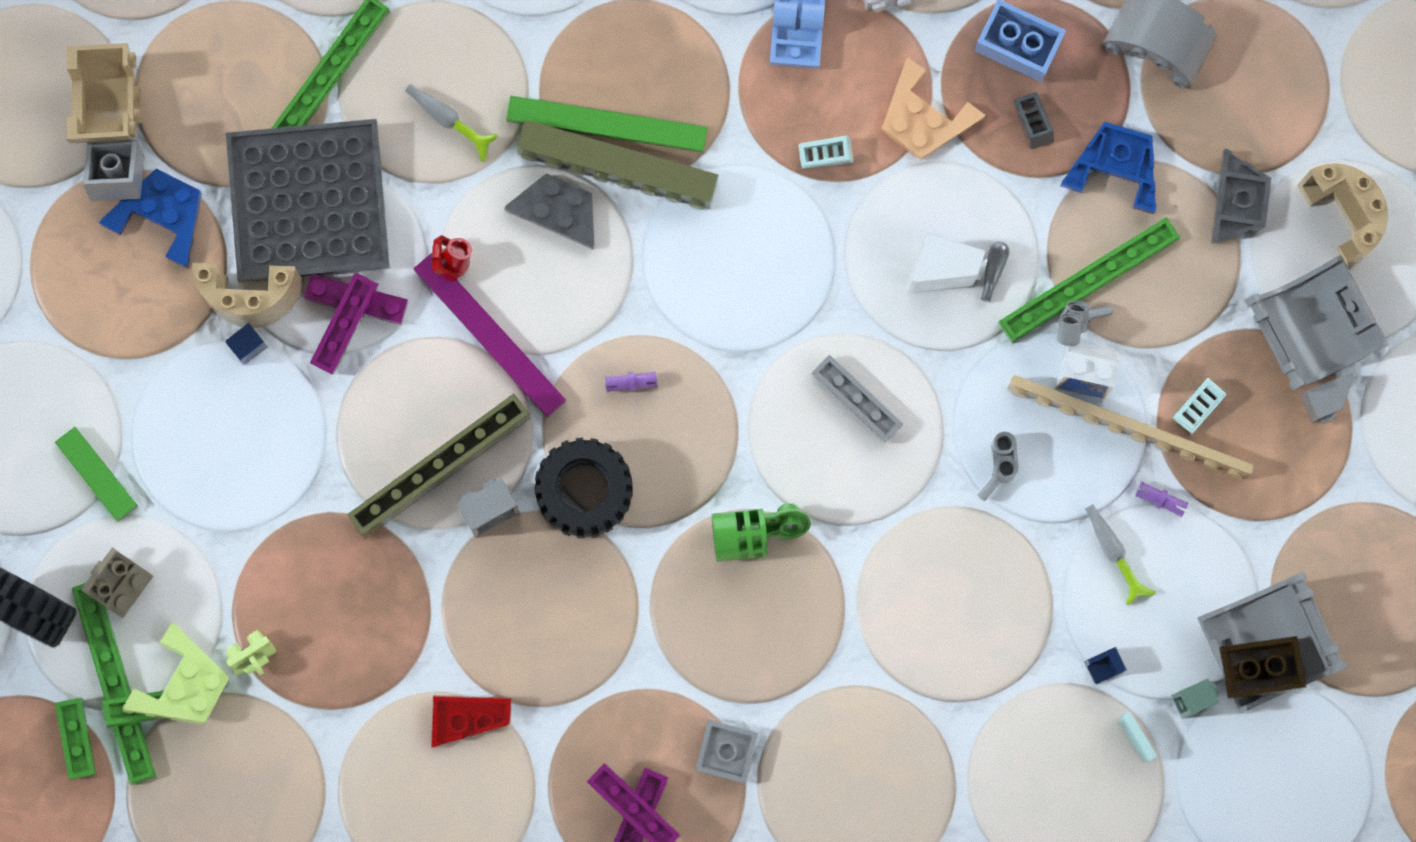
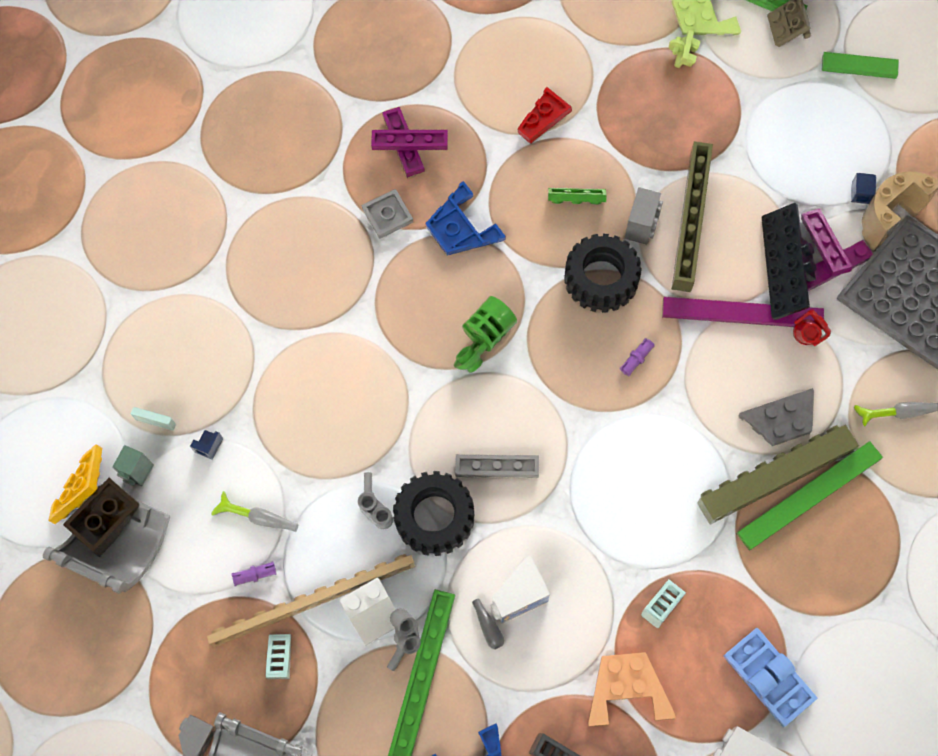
camera: 145 degrees right, 10 degrees down
(401, 337) = (787, 261): none -> black bracket
(523, 595) = (577, 195): none -> bright green plate
(677, 672) = (454, 230): none -> blue wing
(966, 370) = (426, 487): none -> black tyre
(1258, 726) = (78, 486): none -> yellow plate

